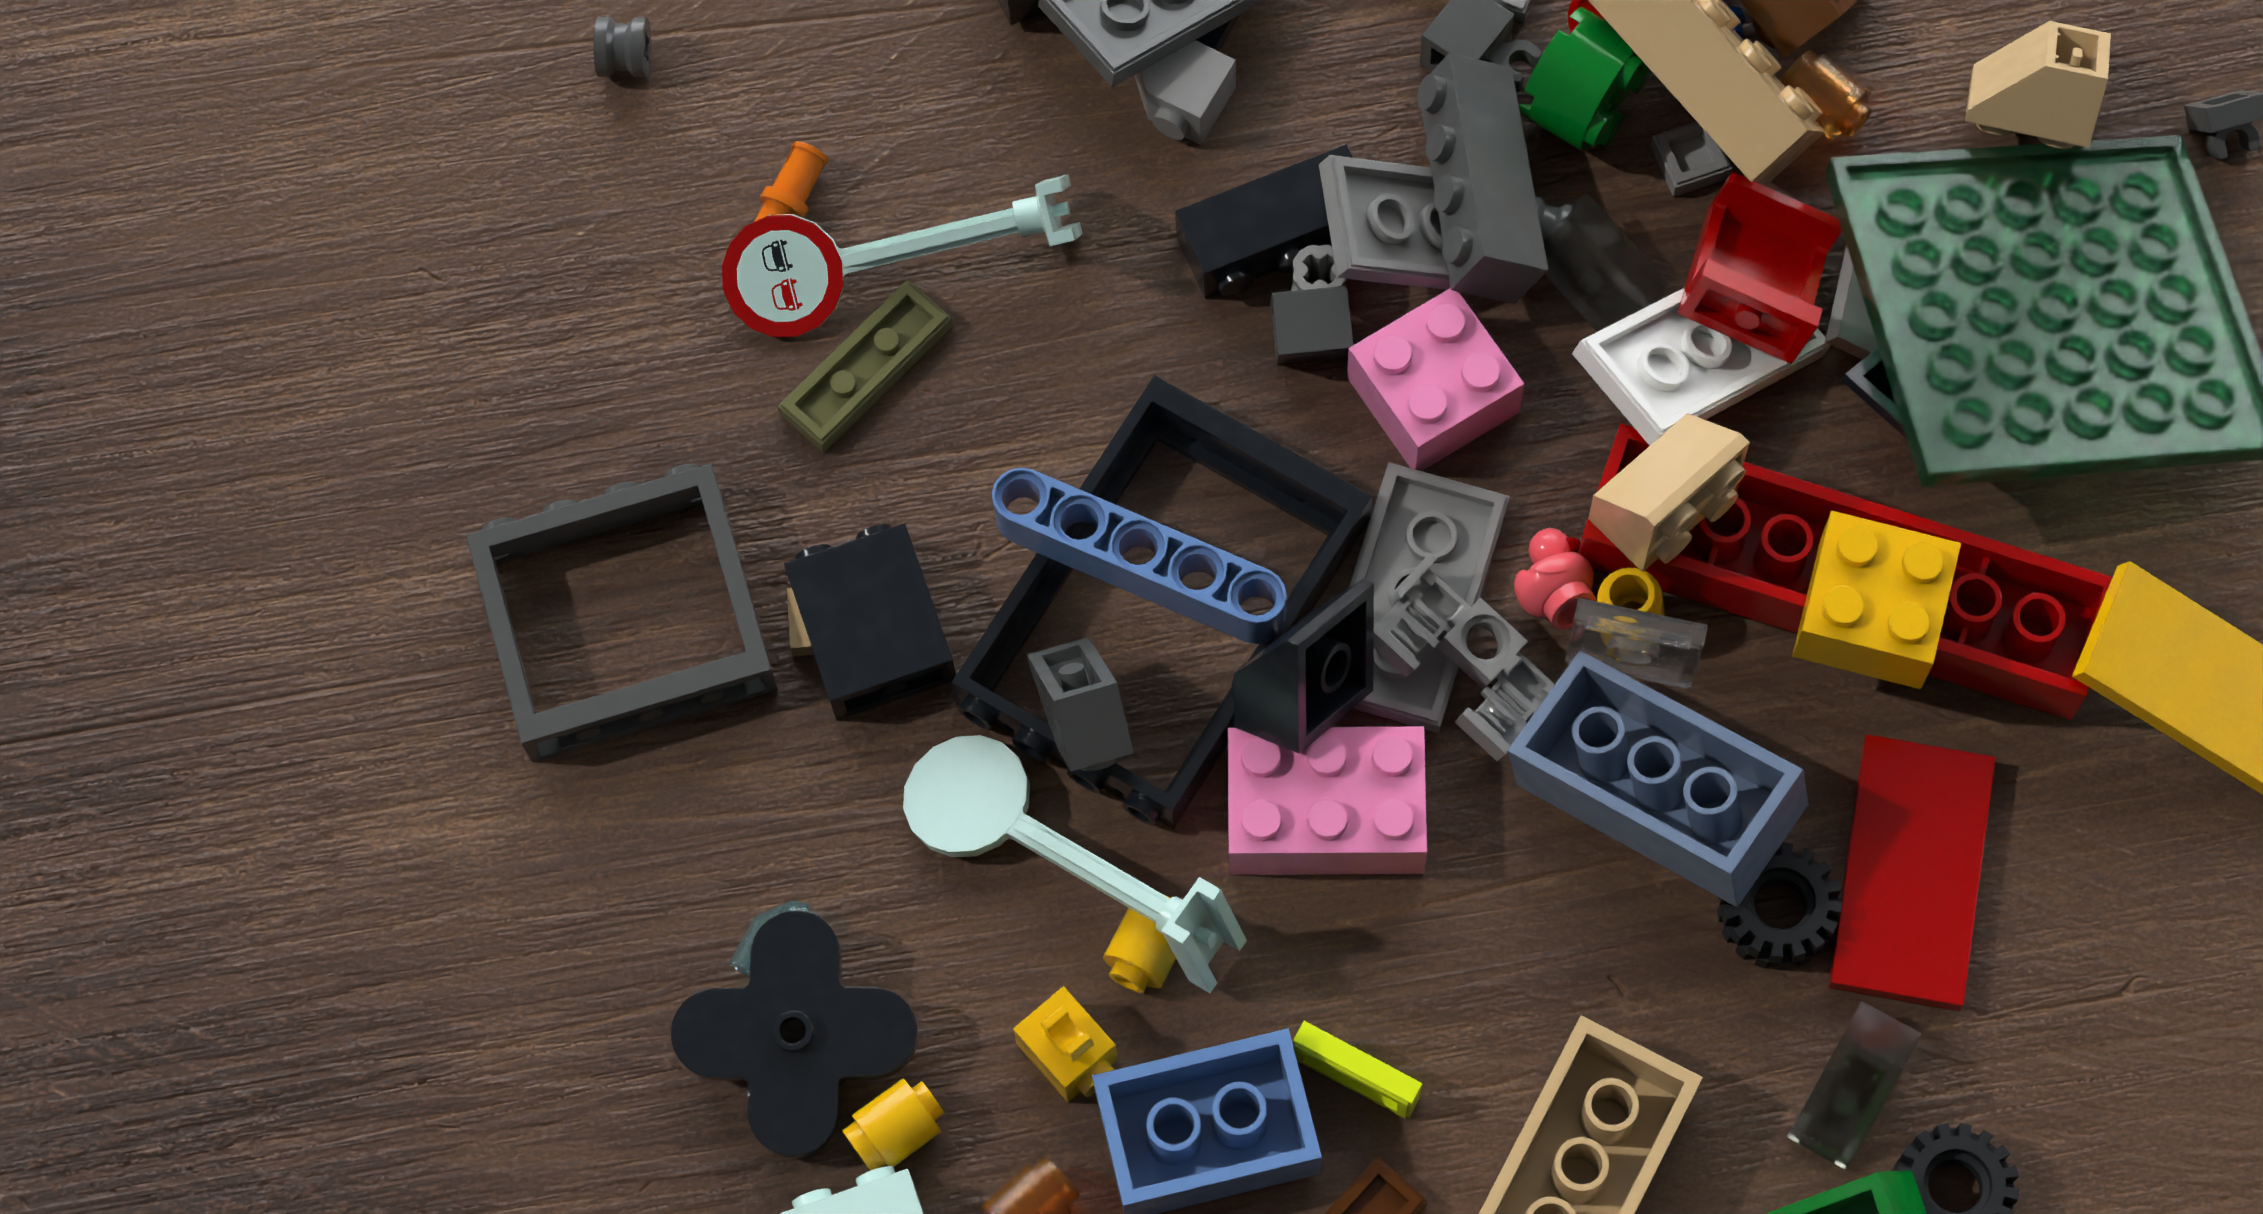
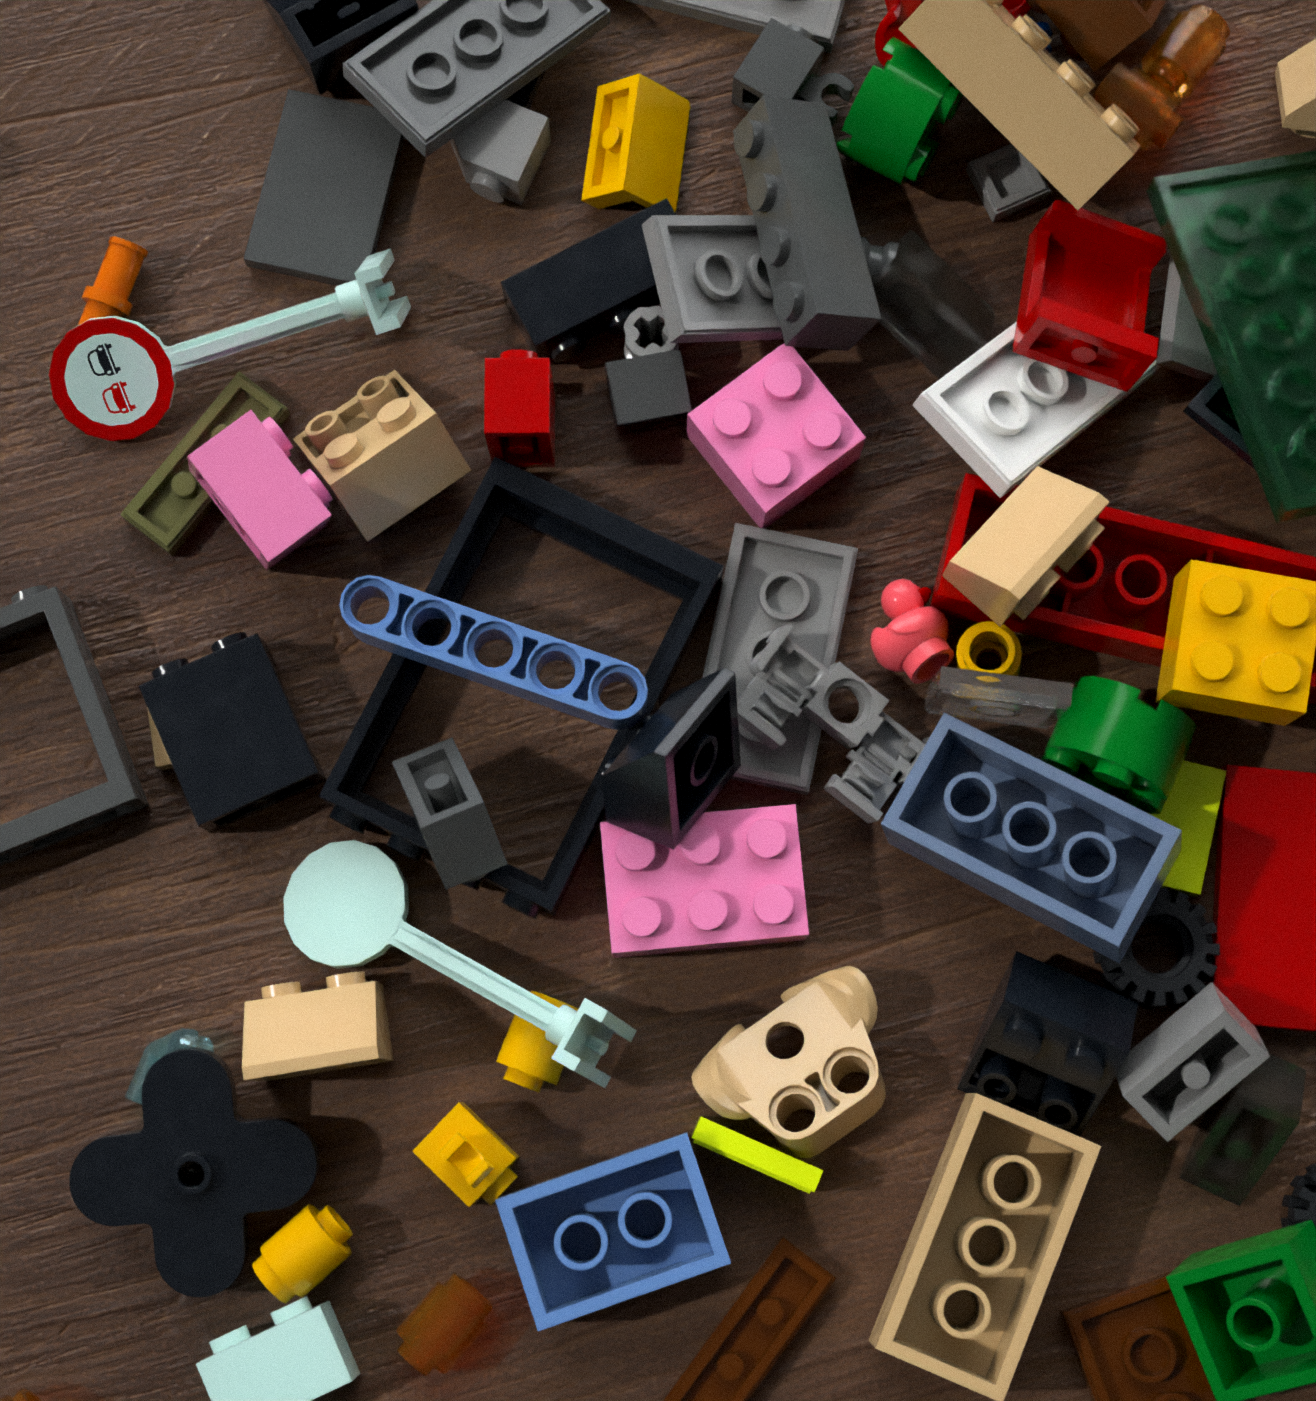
camera: 10 degrees left, 10 degrees up
(922, 385) = (260, 489): none -> bright pink brick
(928, 911) = (315, 1030): none -> tan slope
(1007, 114) = (324, 189): none -> dark grey tile
(1042, 367) = (382, 453): none -> tan slope
(1184, 331) = (520, 409): none -> red brick
(1320, 93) = (635, 144): none -> yellow panel
(1445, 973) = (748, 1082): none -> tan piece
(1664, 982) = (1049, 1044): none -> black slope
(1758, 690) = (1121, 742): none -> green brick
(1801, 1010) = (1190, 1062): none -> light grey brick
(1829, 770) = (1194, 810): none -> neon yellow tile
(1880, 44) = (1187, 50): none -> clear orange brick

